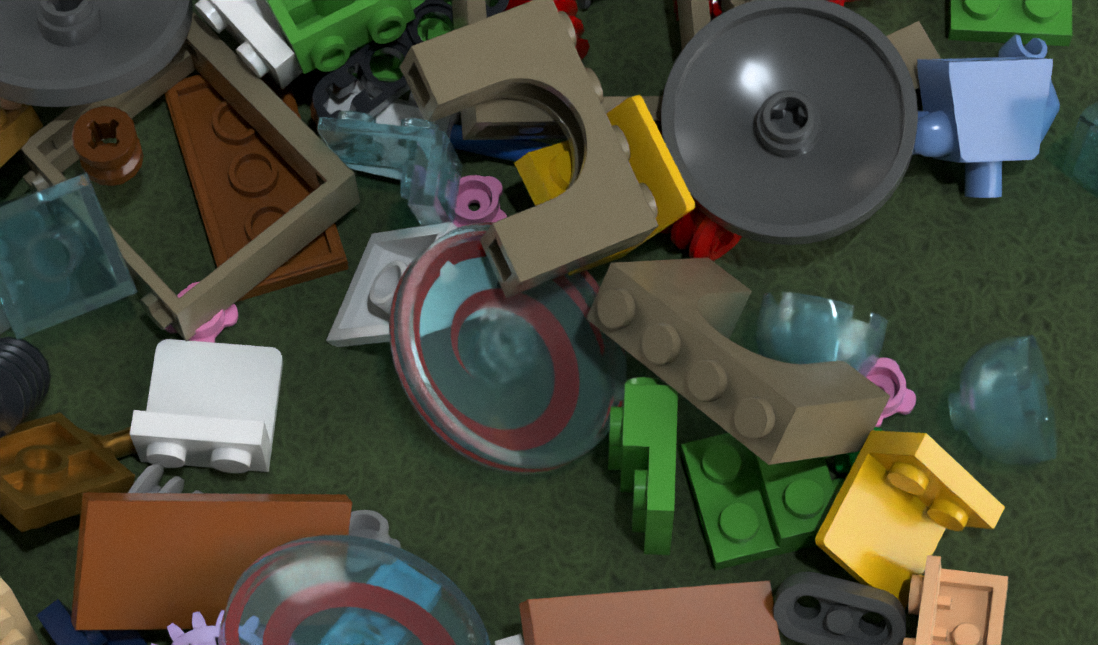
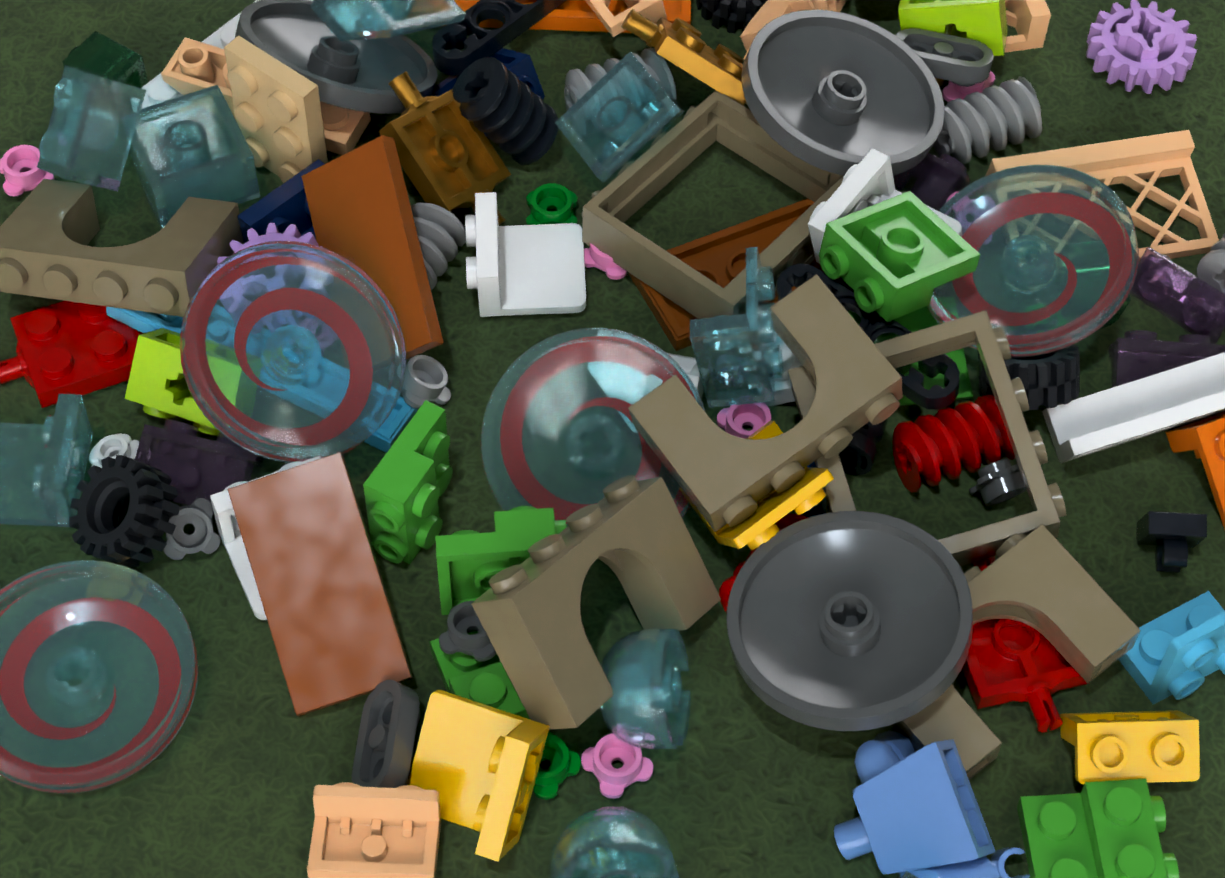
camera: 80 degrees right, 10 degrees down
(110, 162) = (721, 135): reddish brown wheel -> none
(113, 358) = (551, 197): none -> green plate
(542, 557) = (407, 486): none -> bright green plate
(724, 488) = (460, 622): none -> dark grey plate

